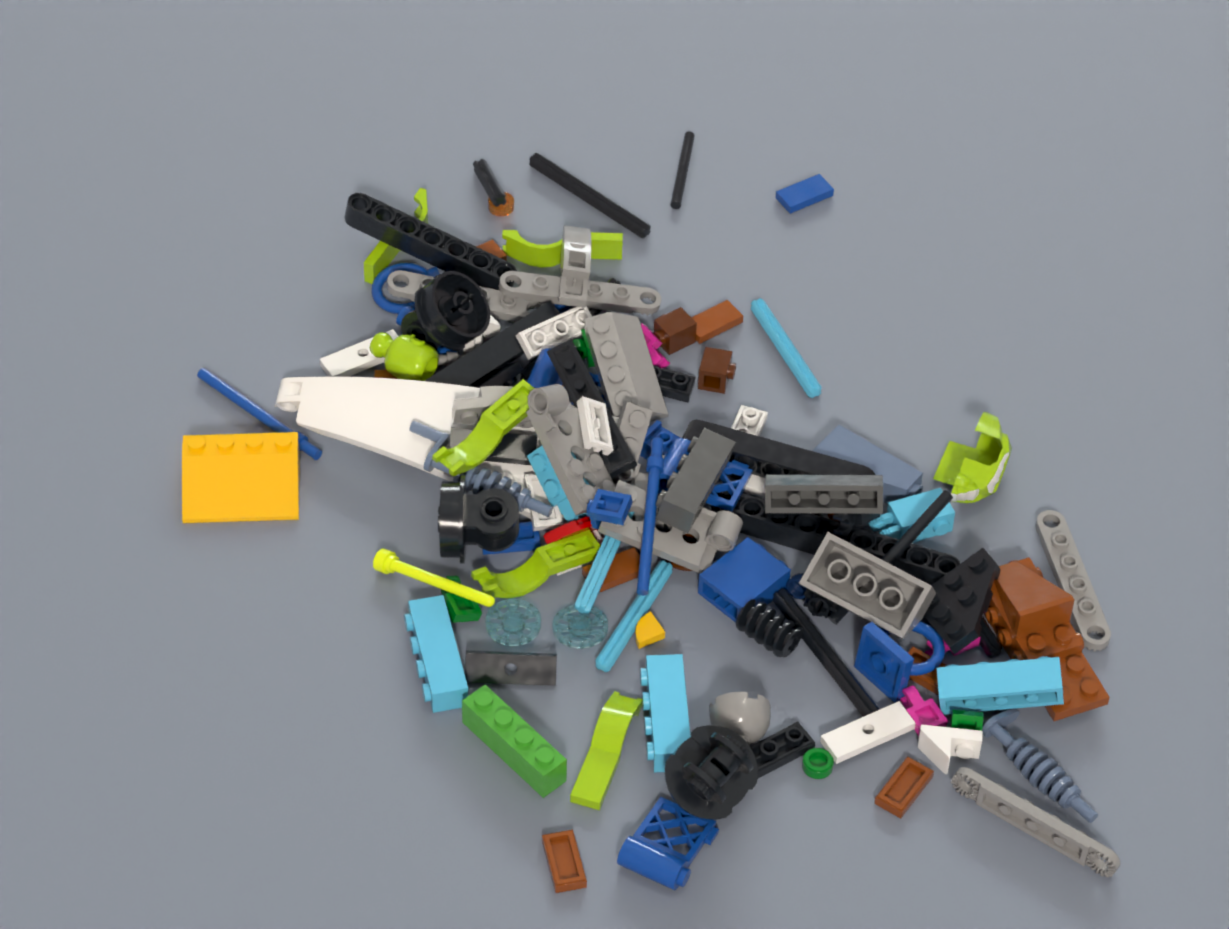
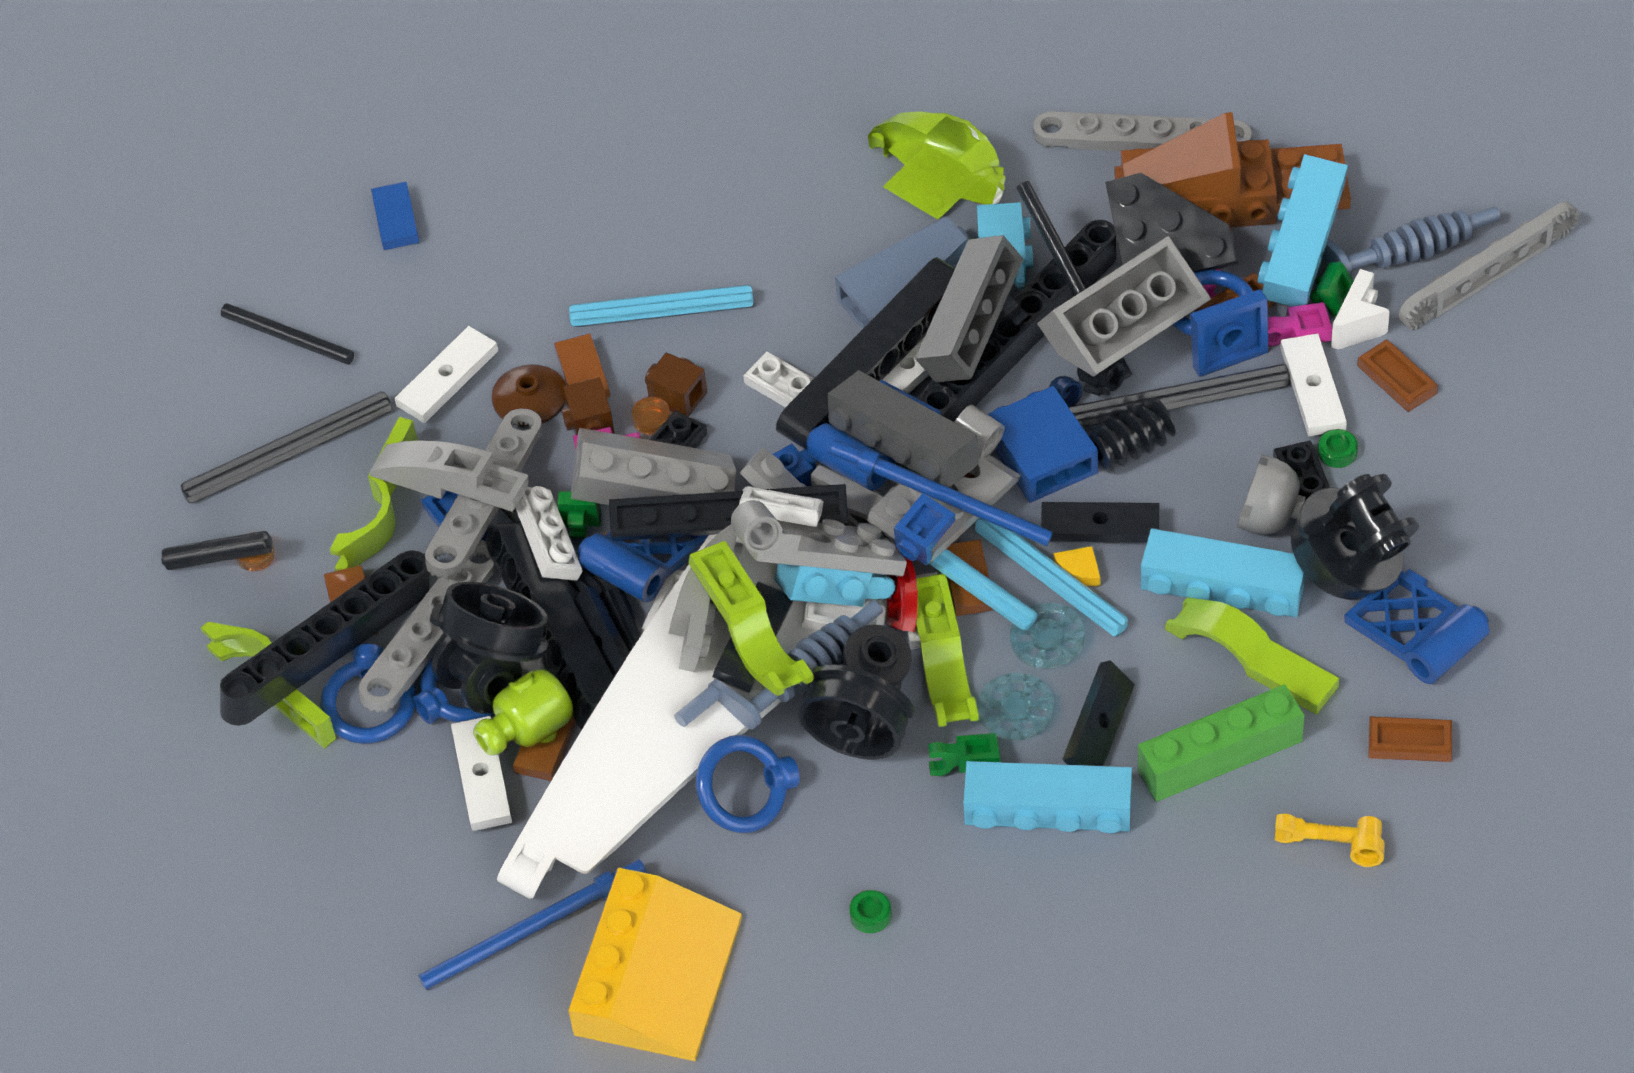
camera: 65 degrees left, 5 degrees up
(320, 582) = (870, 911): none -> green tile
(387, 562) = (873, 819): neon yellow piece -> none
(410, 504) = (778, 774): none -> blue piece
(462, 846) = (1365, 839): none -> yellow brick
(677, 253) = (446, 374): none -> white tile
(685, 295) = (543, 392): none -> reddish brown dish
(688, 364) = (650, 414): none -> clear orange tile
(688, 631) = (1099, 521): none -> black tile

